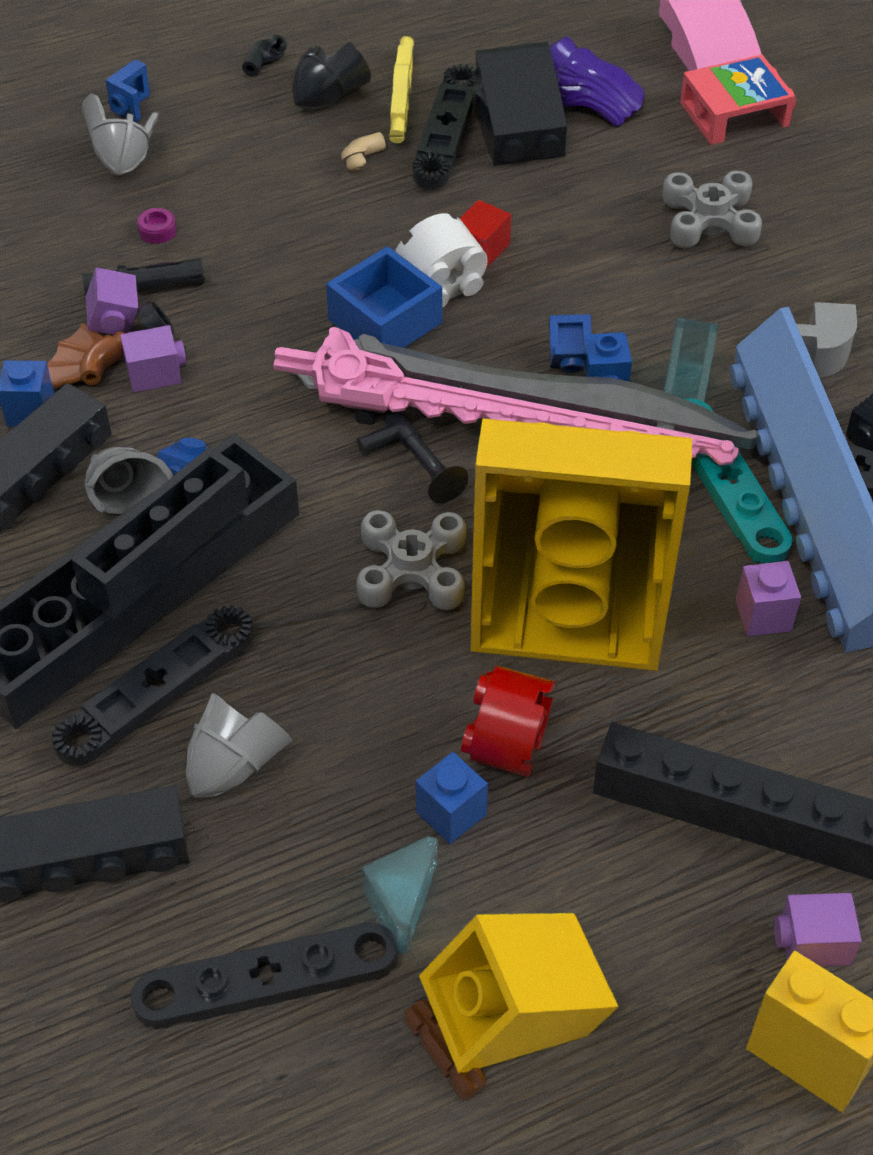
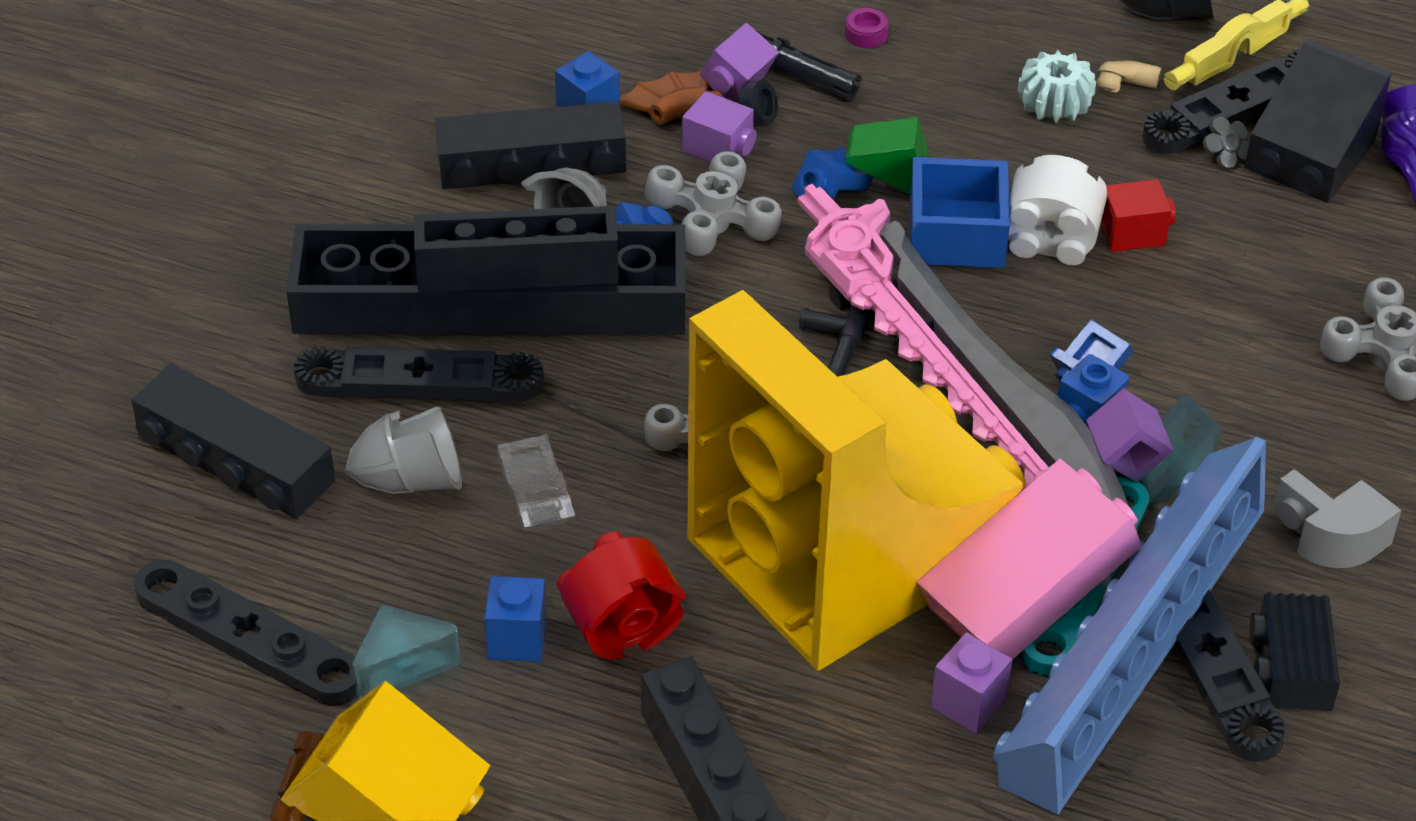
camera: 45 degrees right, 5 degrees down
(210, 407) = (713, 202): none -> light grey gear
(261, 337) = (830, 172): none -> blue bracket
(293, 292) = (887, 150): none -> green slope
(333, 184) = (1056, 86): none -> light aqua gear
(338, 700) = (535, 483): none -> clear slope
(472, 154) = (1227, 141): none -> dark grey plant
(665, 369) = (1130, 435): none -> medium lavender brick
(726, 491) = (1032, 560): none -> bright pink brick

